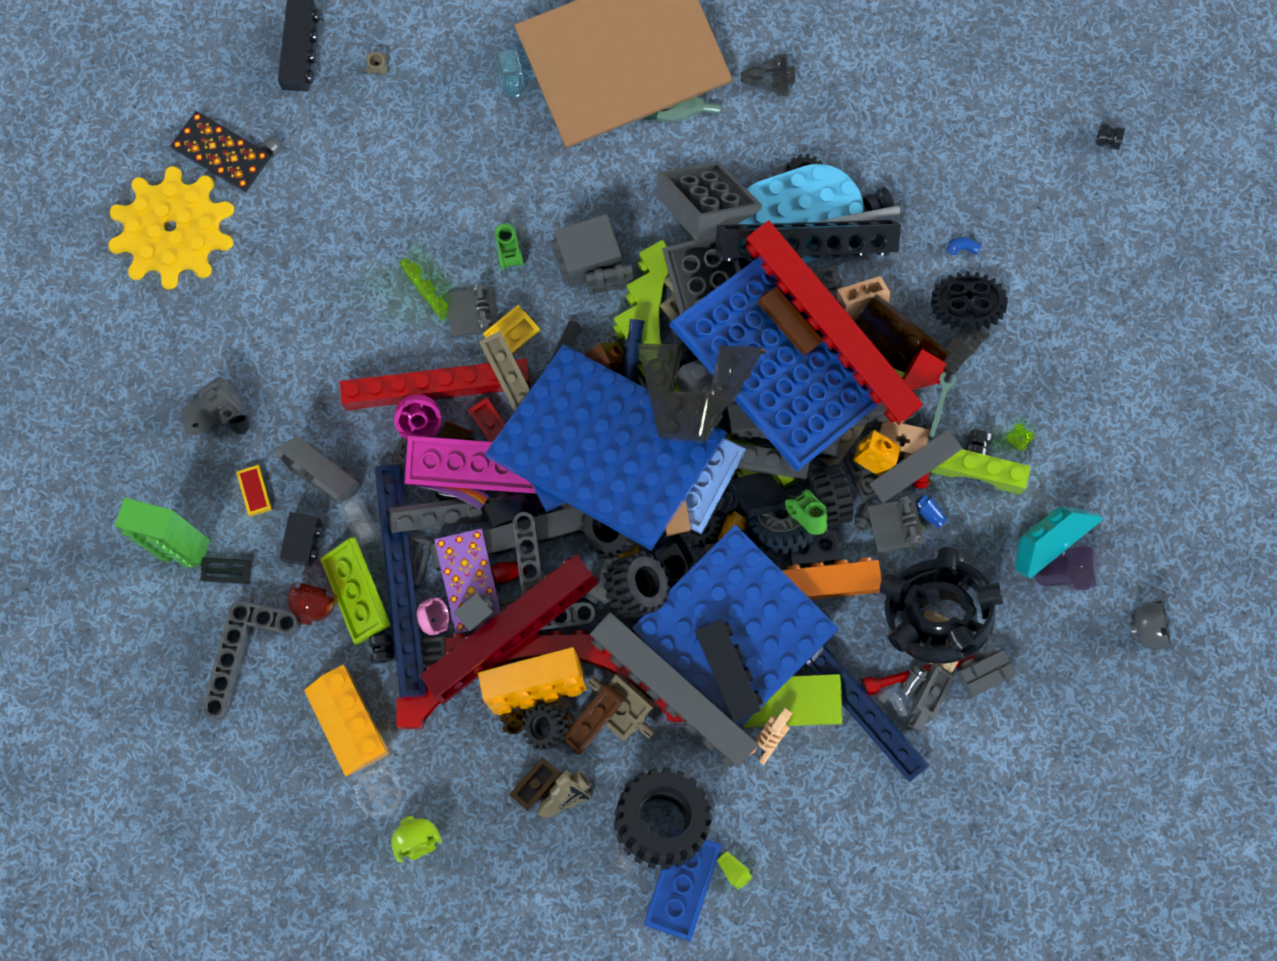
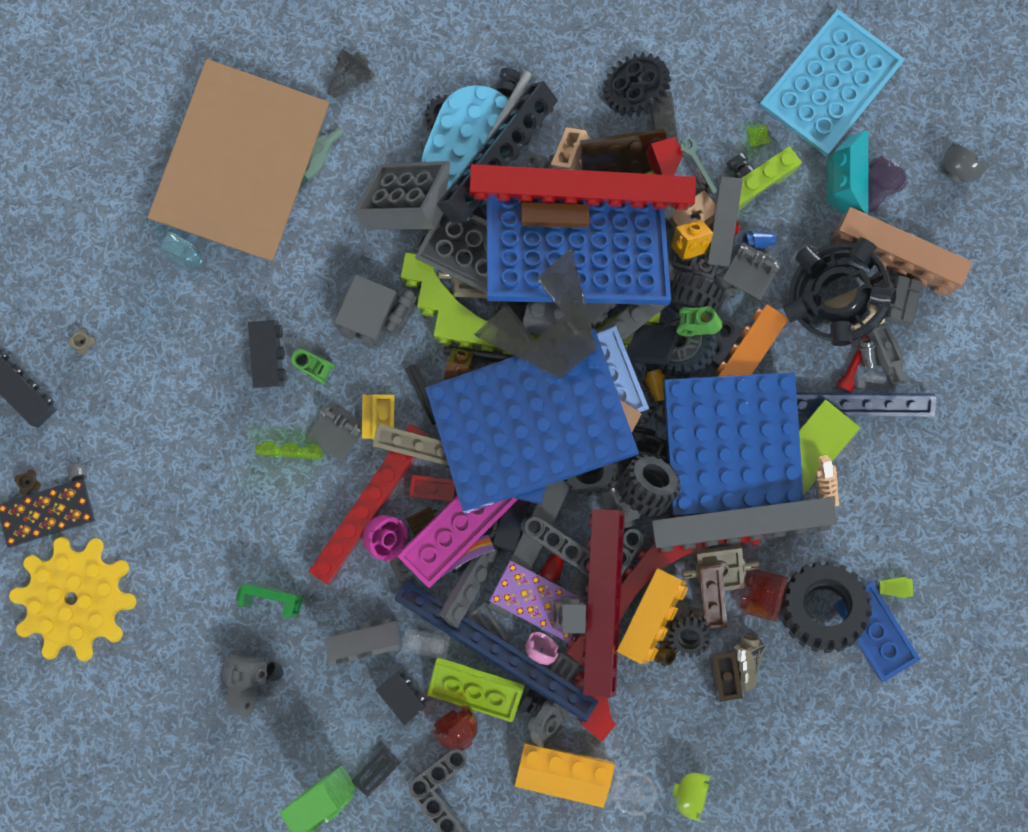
camera: 50 degrees left, 5 degrees up
(228, 113) = (21, 482): none -> dark brown plate
(254, 490) = (333, 701): red tile -> none
(303, 390) = (292, 601): none -> green panel
(368, 662) = (546, 725): none -> dark grey plate
(486, 204) = (266, 353): none -> black brick
(629, 760) = (763, 595): none -> clear red slope
(632, 351) = (470, 342): dark blue pin -> none
(727, 669) = (762, 473): black brick -> none
(963, 243) = (588, 52): blue arm -> none
(1025, 636) = (905, 252): none -> nougat brick
(1123, 459) = (831, 82): none -> medium azure plate

